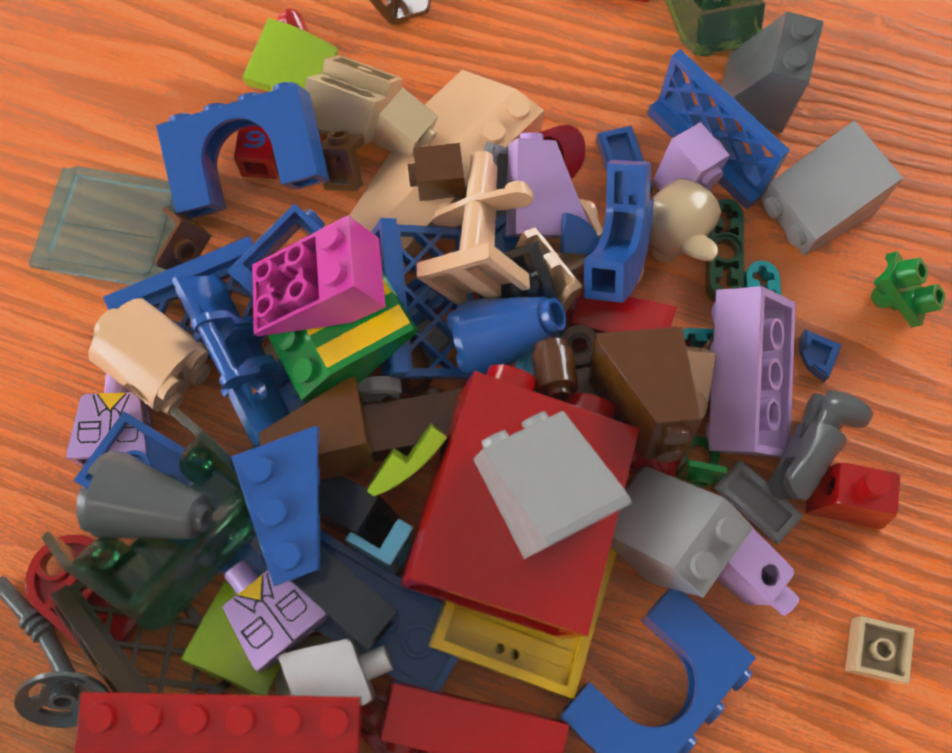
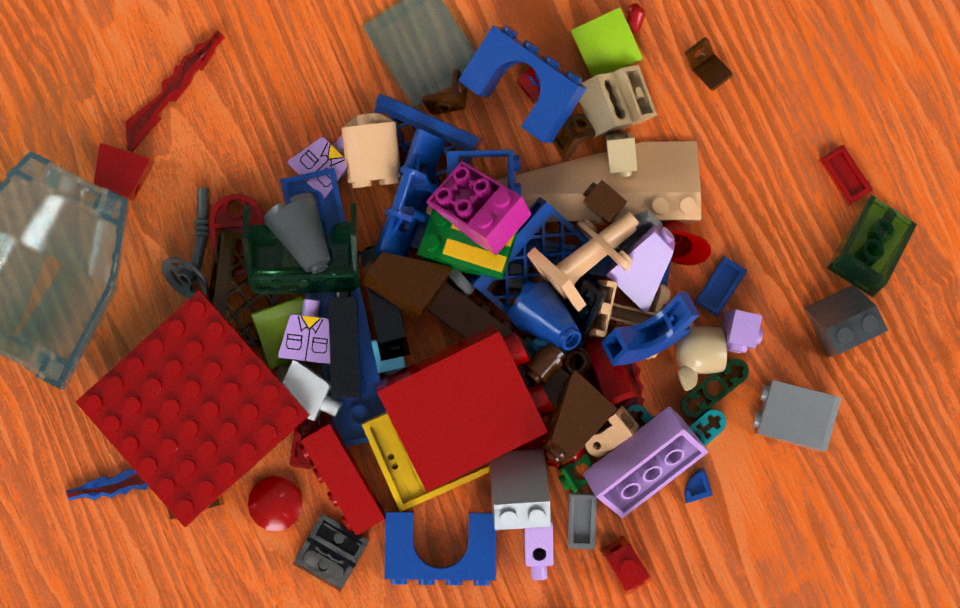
camera: 45 degrees right, 15 degrees up
(283, 502) = (360, 298): blue wing -> none
(399, 467) = (431, 334): lime slope -> none
(547, 481) = (474, 414): light grey slope -> none
(577, 235) = (635, 307): blue tile -> none
(744, 174) = (776, 324): blue fence -> none
(816, 443) = (632, 524): dark grey piece -> none
(902, 289) = (773, 505): green hips -> none

